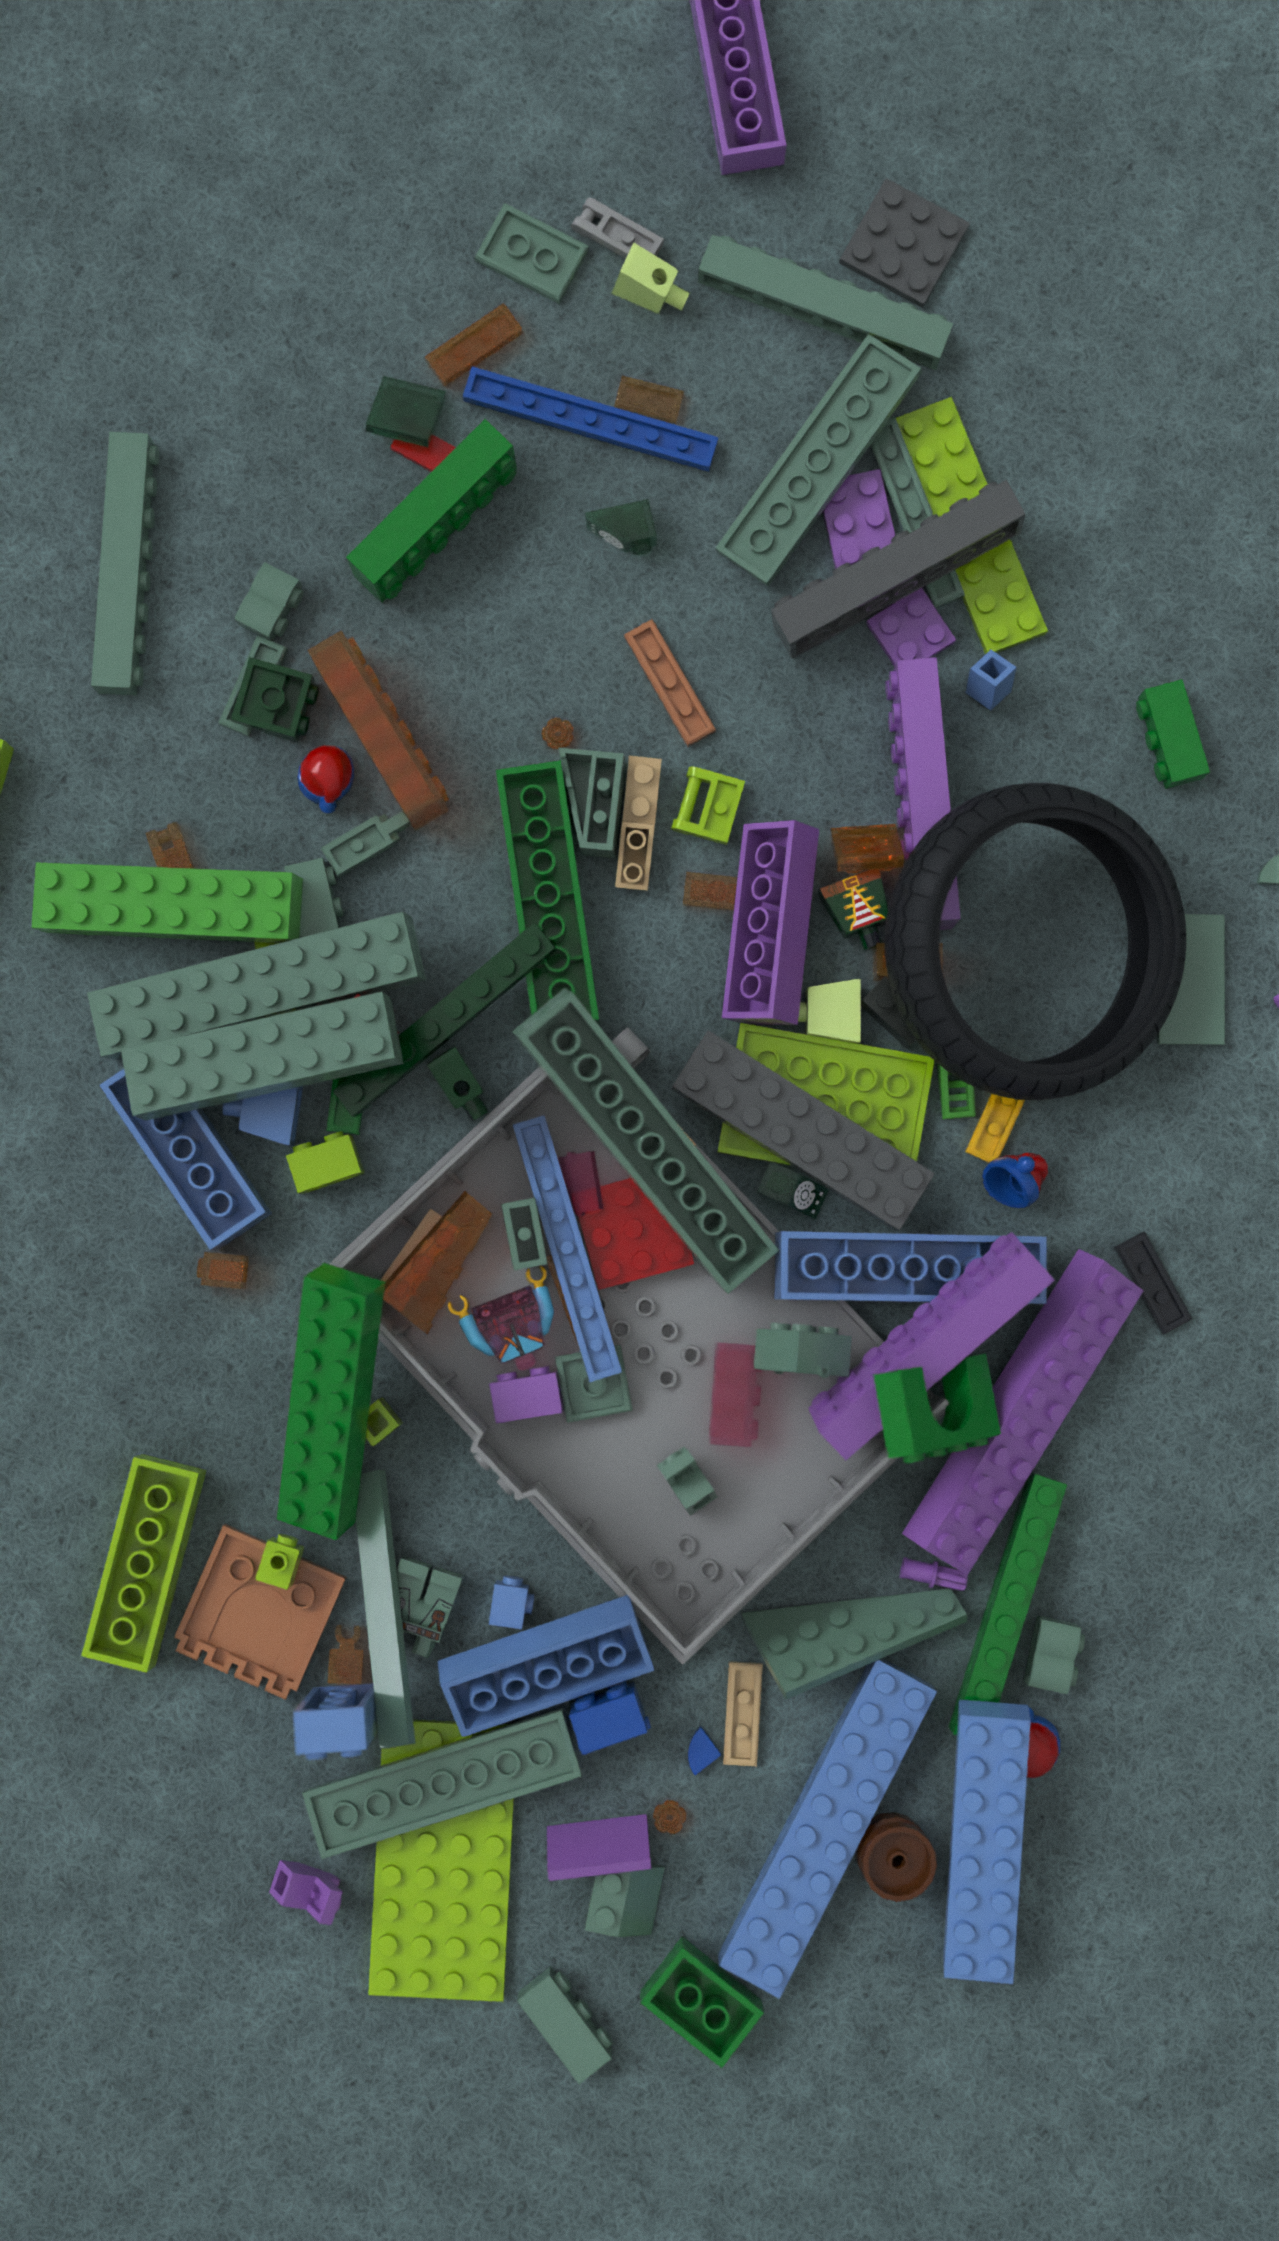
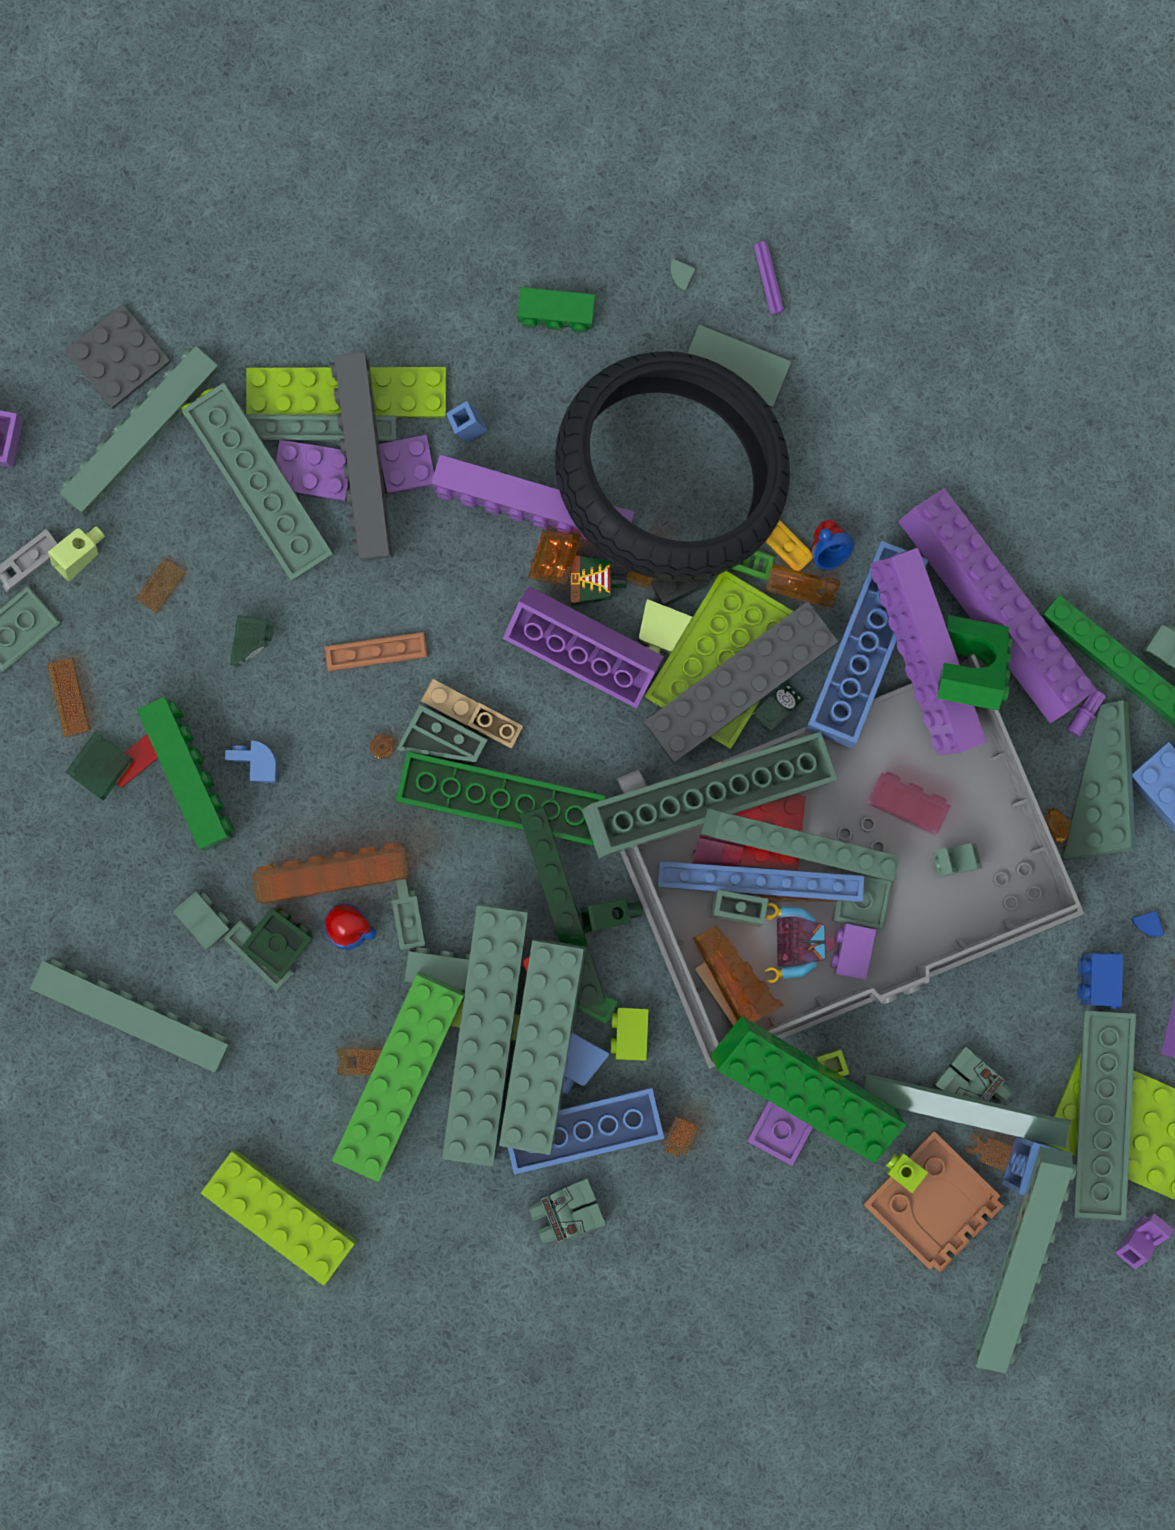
camera: 70 degrees left, 0 degrees up
(74, 1162) = (563, 1219): none -> sand green hips
(143, 1563) = (869, 1271): lime brick -> none
(221, 1749) = (1024, 1259): none -> sand green brick
(266, 1390) = (779, 1133): none -> medium lavender plate
(484, 599) = (261, 758): none -> medium blue brick
(510, 1603) = (995, 1019): medium blue brick -> none
(545, 1666) = (1049, 1010): medium blue brick -> none
(590, 419) = (158, 634): blue plate -> none
(627, 1275) = (800, 844): none -> sand green brick
(710, 891) = (540, 681): clear orange plate -> none
(719, 806) = (483, 652): lime plate -> none
(742, 1713) = (1133, 885): tan tile -> none
(779, 1590) = (1058, 825): none -> clear orange tile
(802, 1350) = (897, 742): sand green brick -> none
(952, 1163) = (802, 586): none -> clear orange plate
(1151, 1276) = (938, 477): black tile -> none

